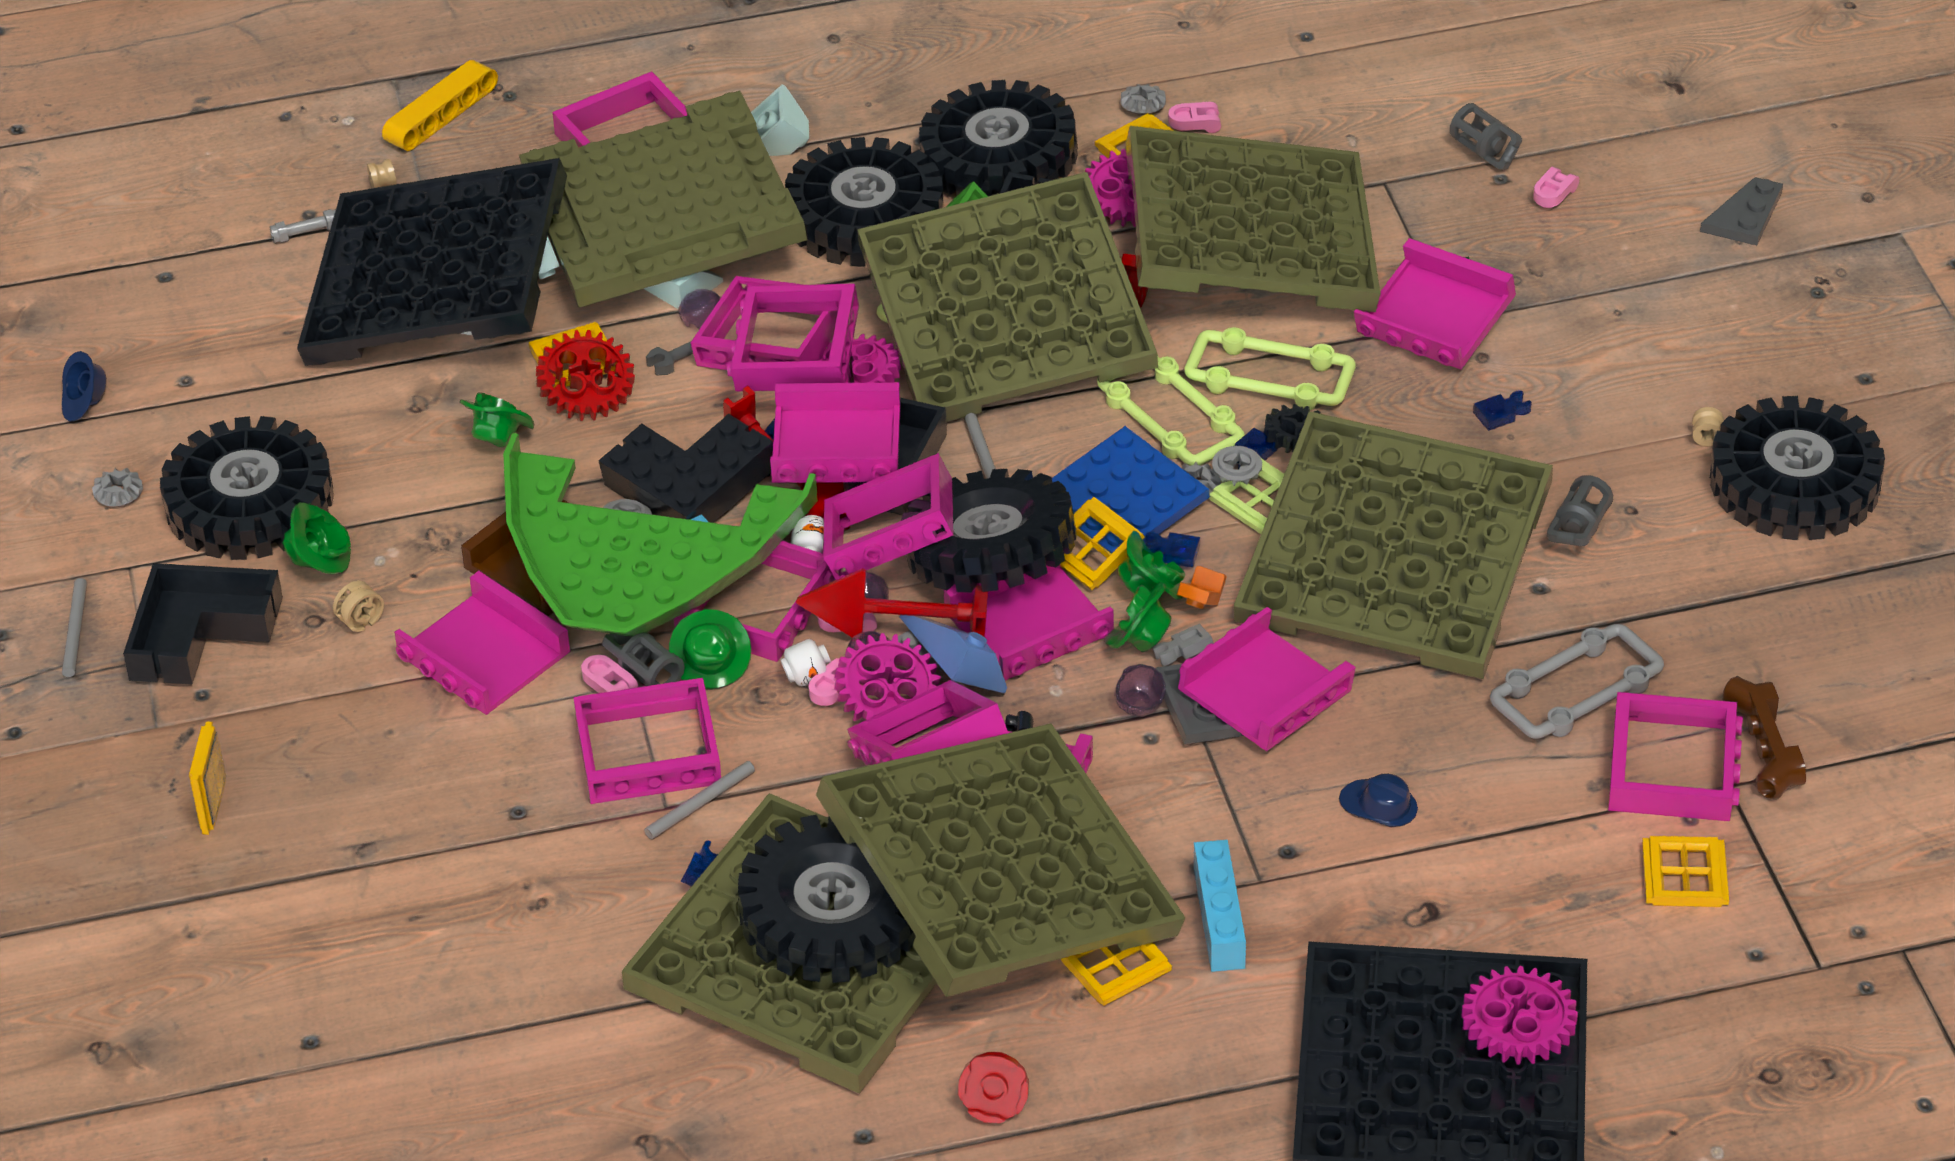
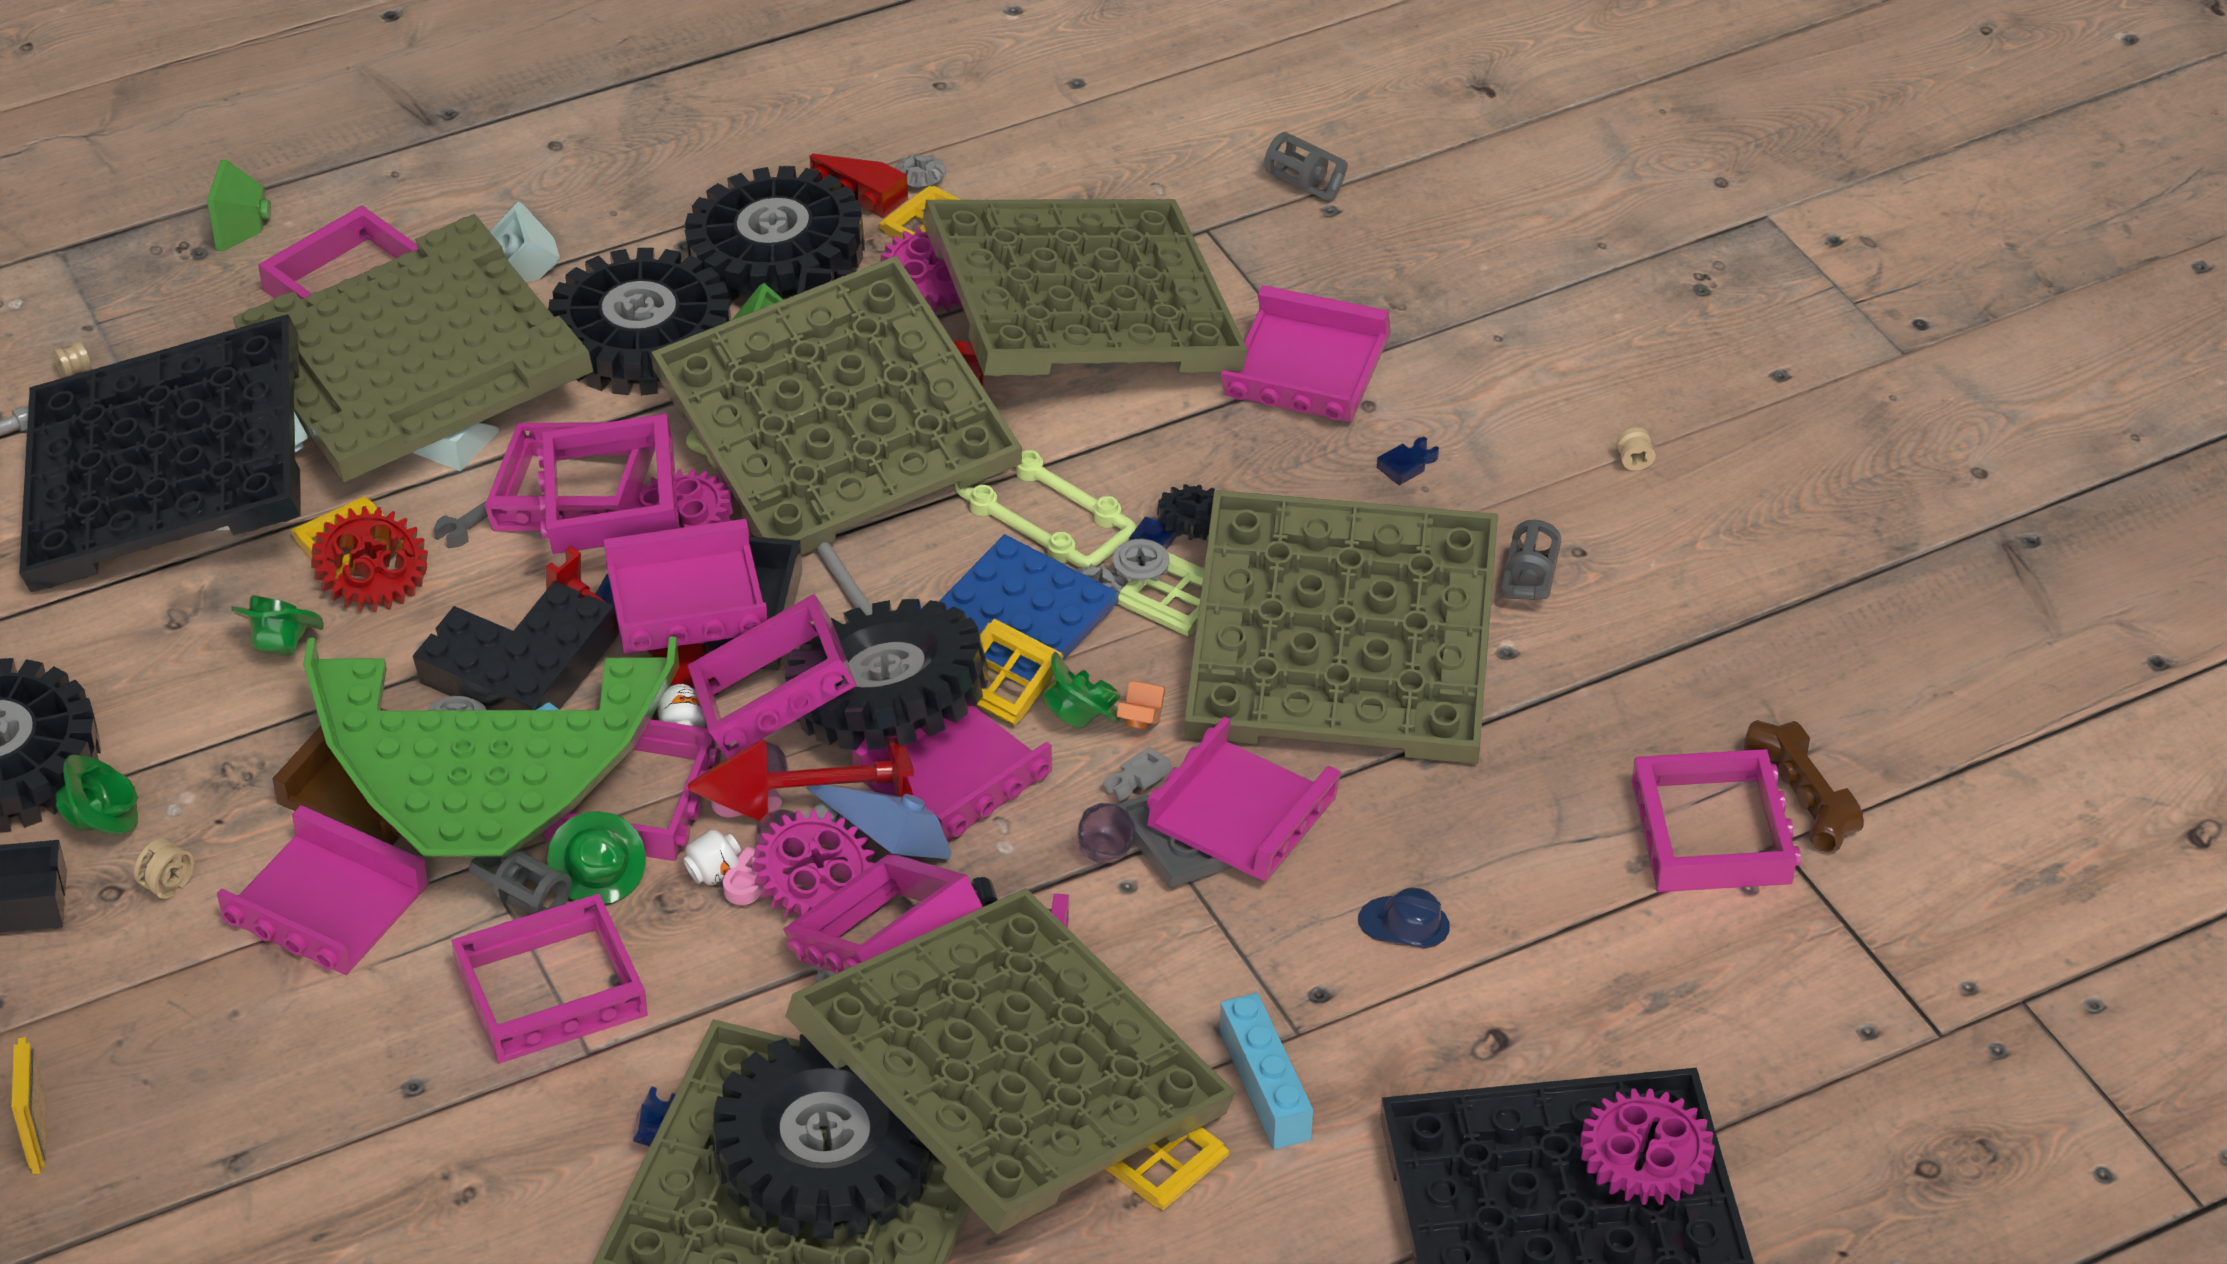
camera: 15 degrees left, 0 degrees up
(439, 105) = (121, 273): yellow beam -> none
(546, 59) = (236, 206): none -> bright green slope
(601, 670) = (472, 903): bright pink plate -> none
(697, 306) = (480, 464): clear purple hair -> none
(699, 800) = (627, 1039): light grey bar -> none
(1092, 104) = (874, 183): none -> red slope
(1146, 620) = (1090, 752): green hat -> none
(1176, 548) = (1099, 663): clear blue plate -> none
(1195, 117) = (982, 183): bright pink plate -> none
(1305, 394) = (1097, 422): yellowish green bar -> none
(1554, 187) = (1392, 212): bright pink plate -> none
(1593, 644) = (1578, 795): light grey bar -> none
(1715, 870) = (1796, 941): yellow piece -> none
(1745, 213) = (1600, 214): dark grey wing -> none
(1796, 468) = (1744, 481): black wheel -> none

